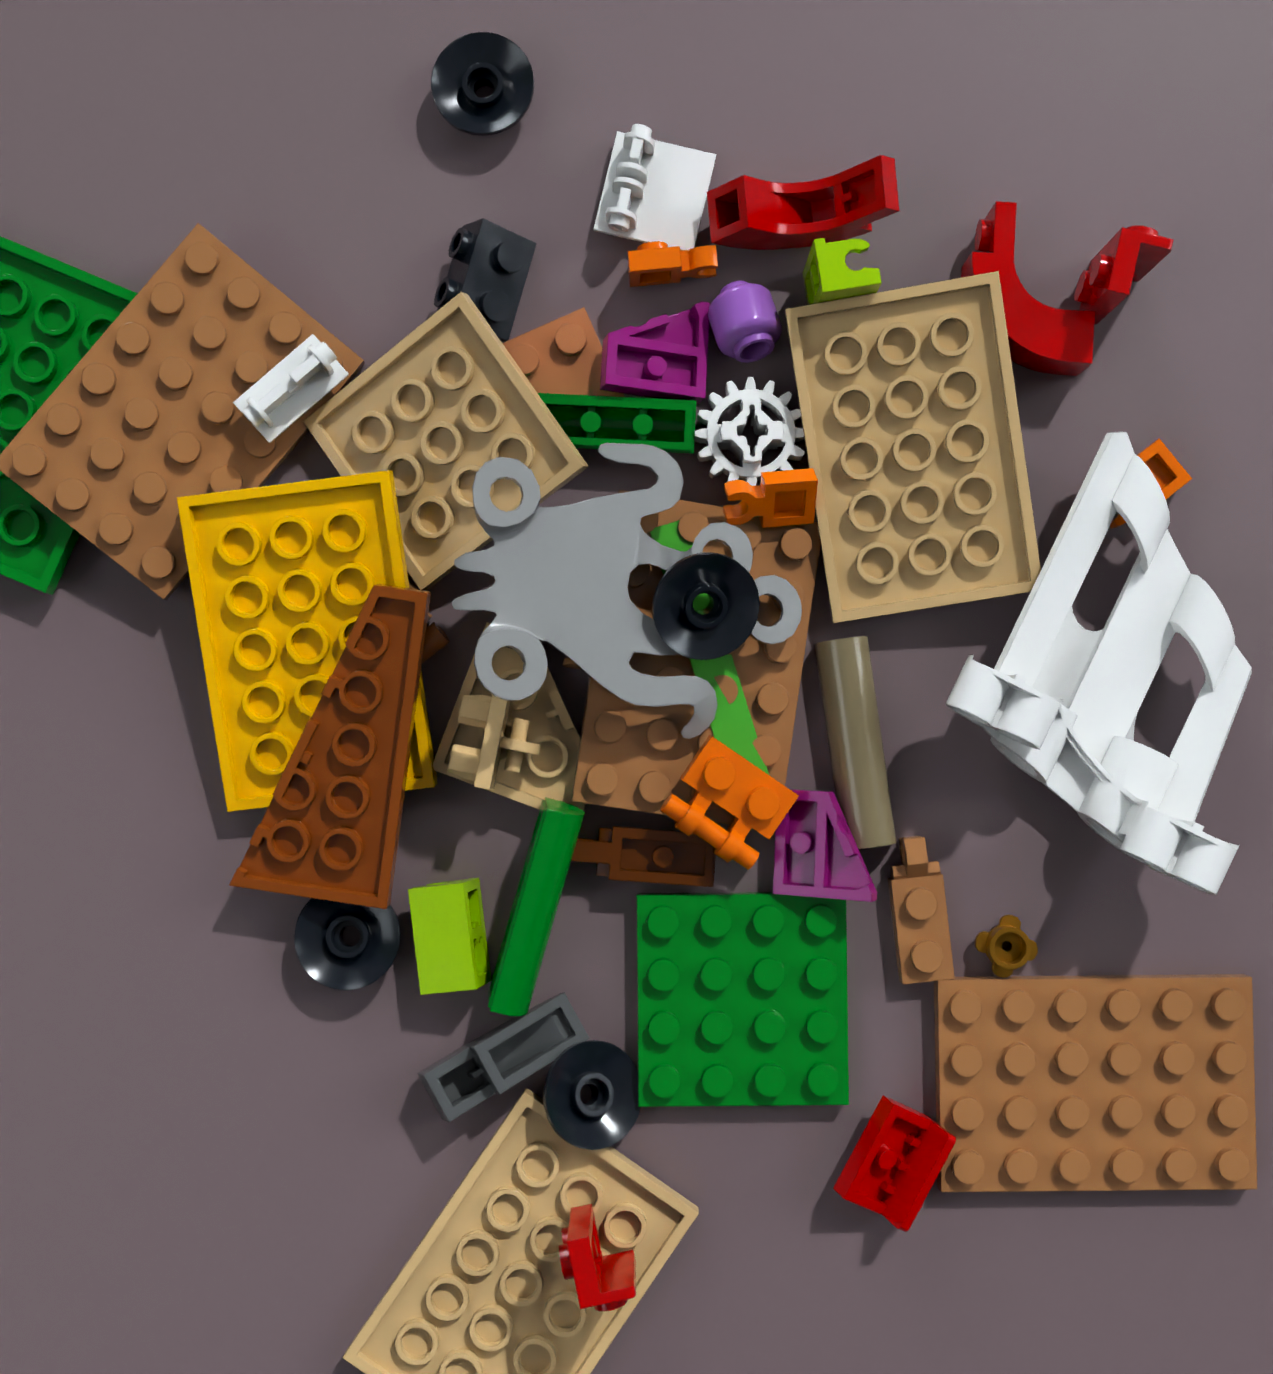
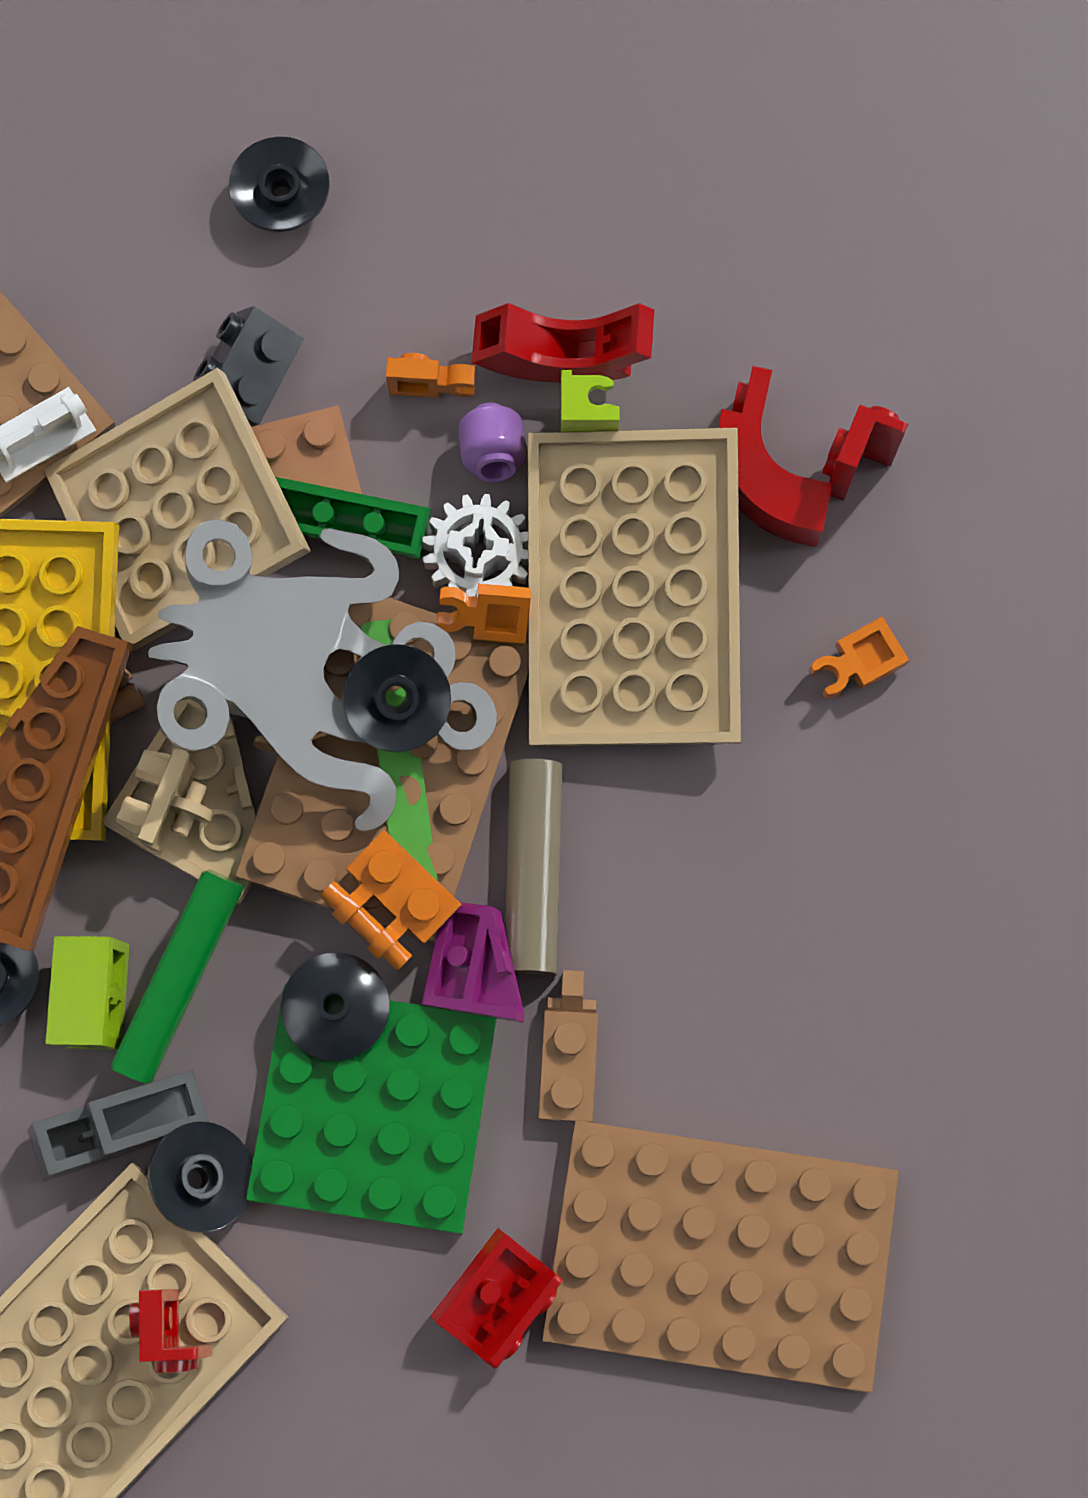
camera: 10 degrees right, 10 degrees down
(649, 856) = (291, 940): reddish brown hinge -> none
(654, 190) = (427, 307): white hinge -> none
(660, 357) = (402, 462): magenta wing -> none
(688, 884) = (351, 1030): none -> black dish
(1021, 948) = (657, 1083): pearl gold plate -> none
(1071, 696) = (755, 857): white panel -> none

